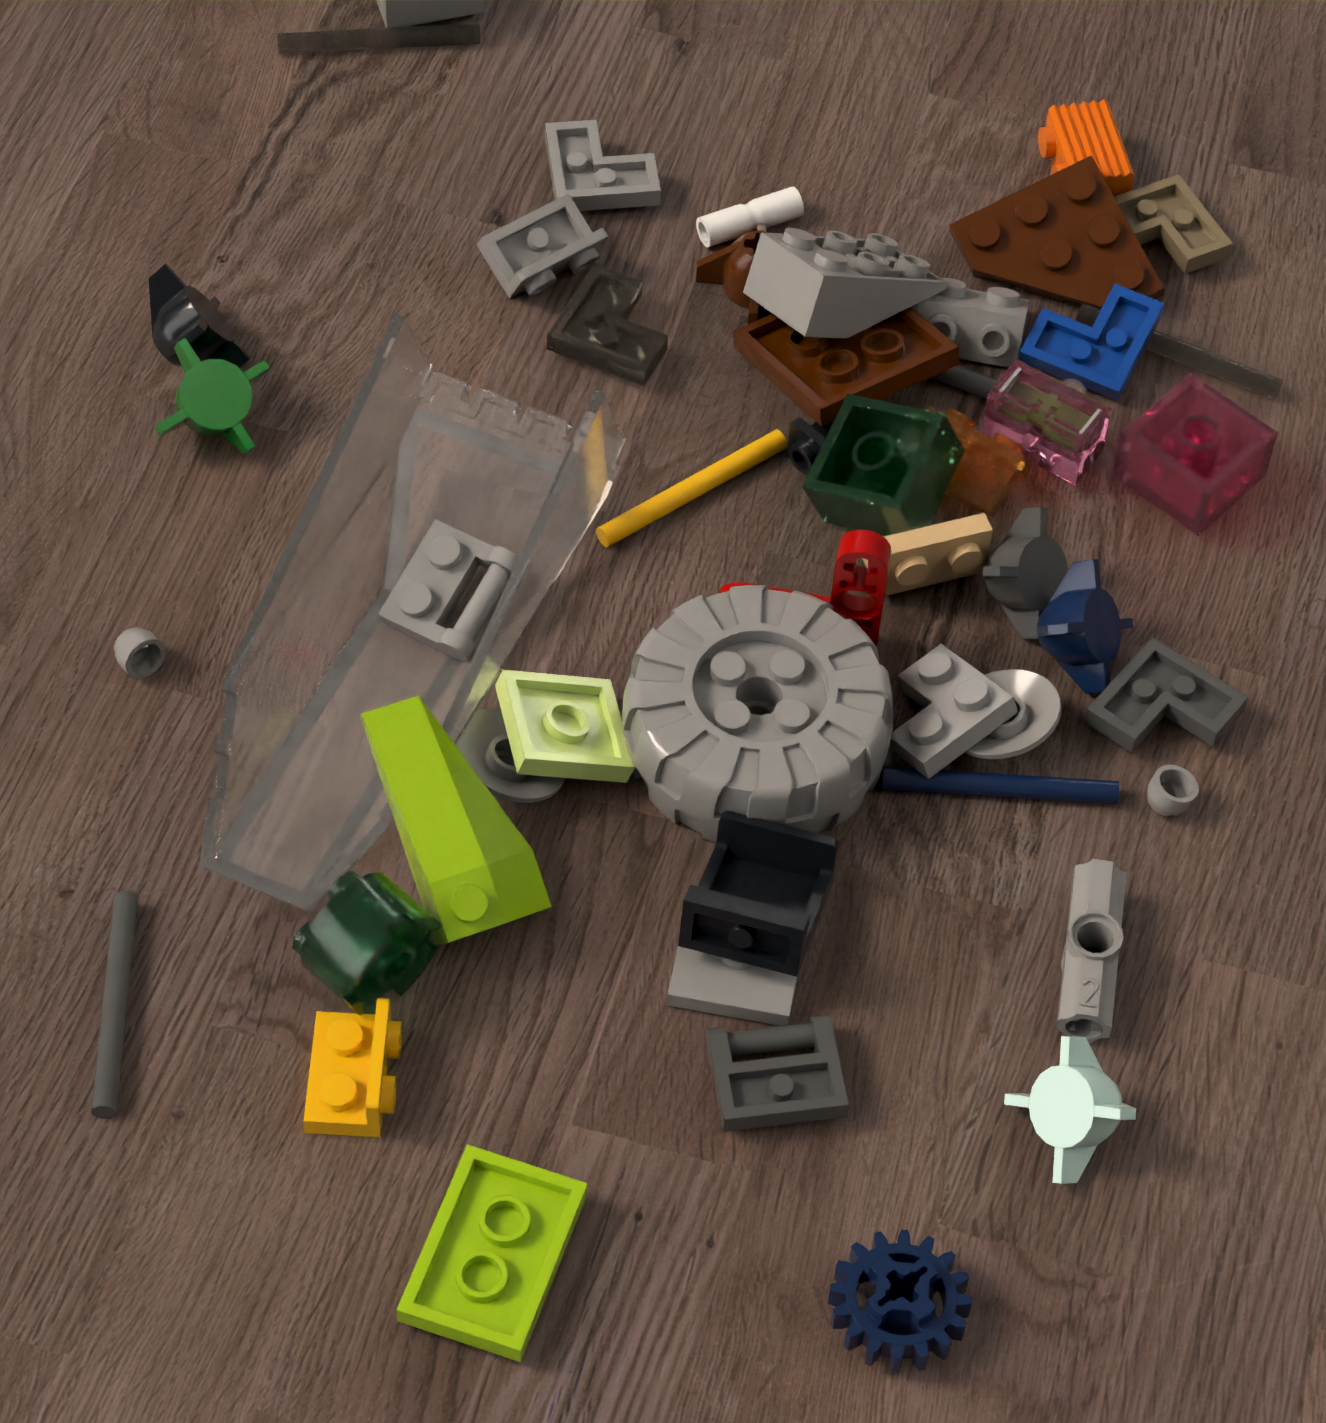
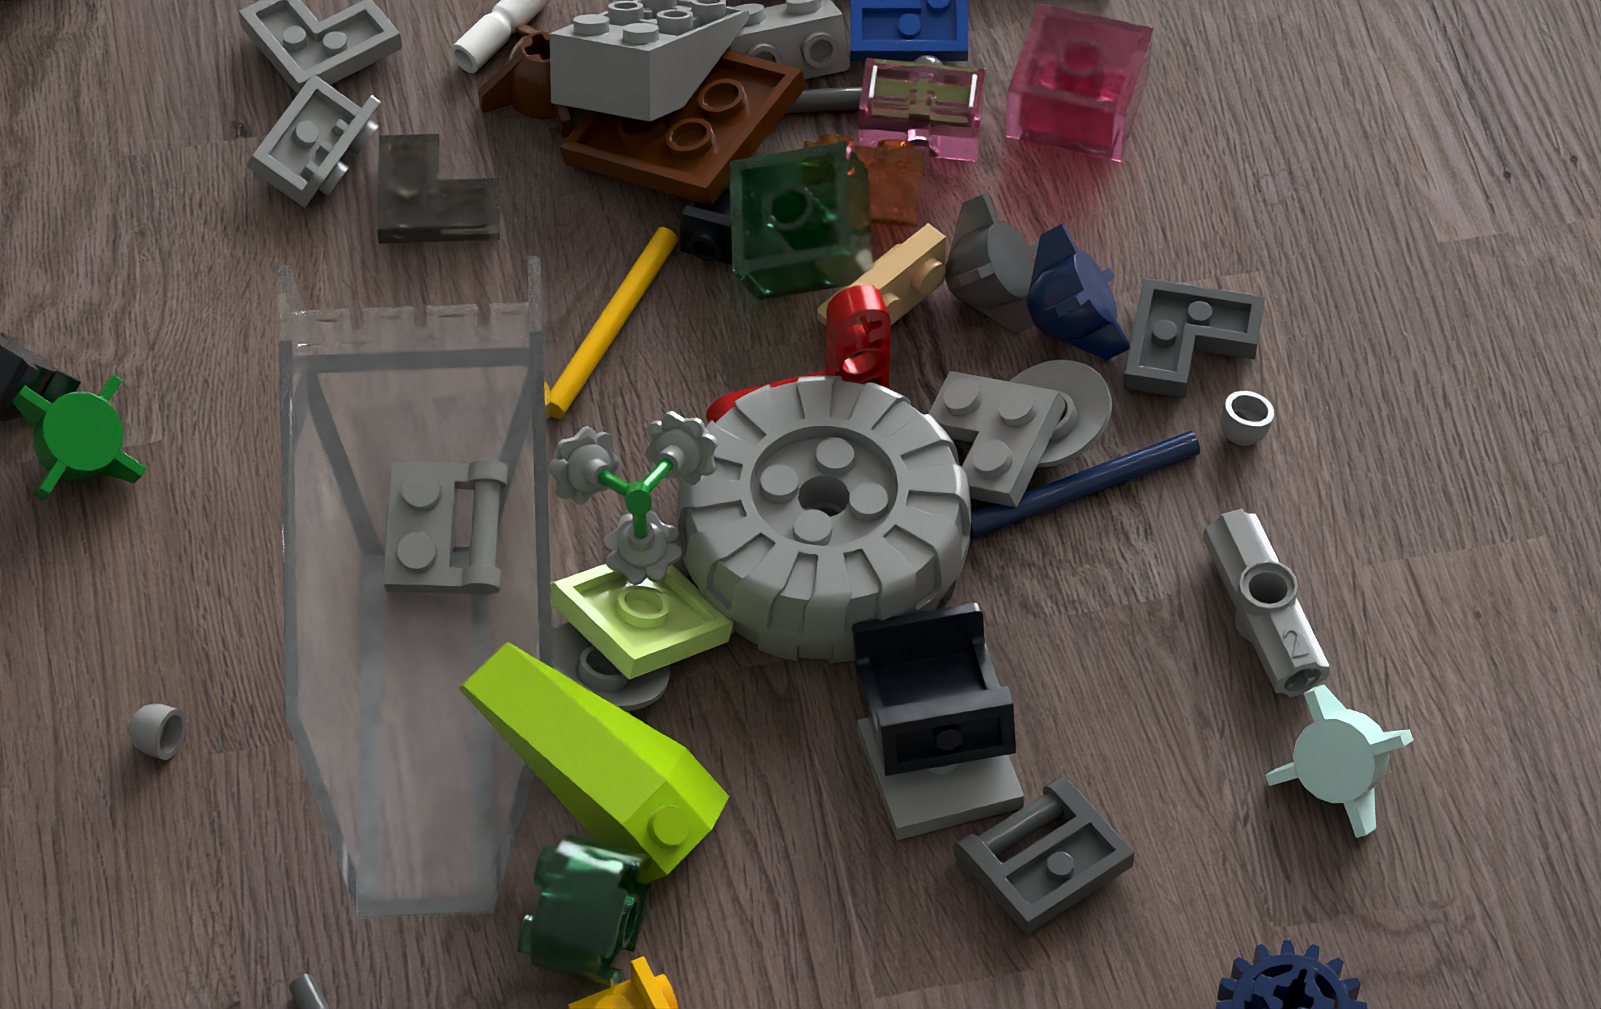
camera: 25 degrees left, 0 degrees up
(565, 585) = (641, 542): none -> light grey plant

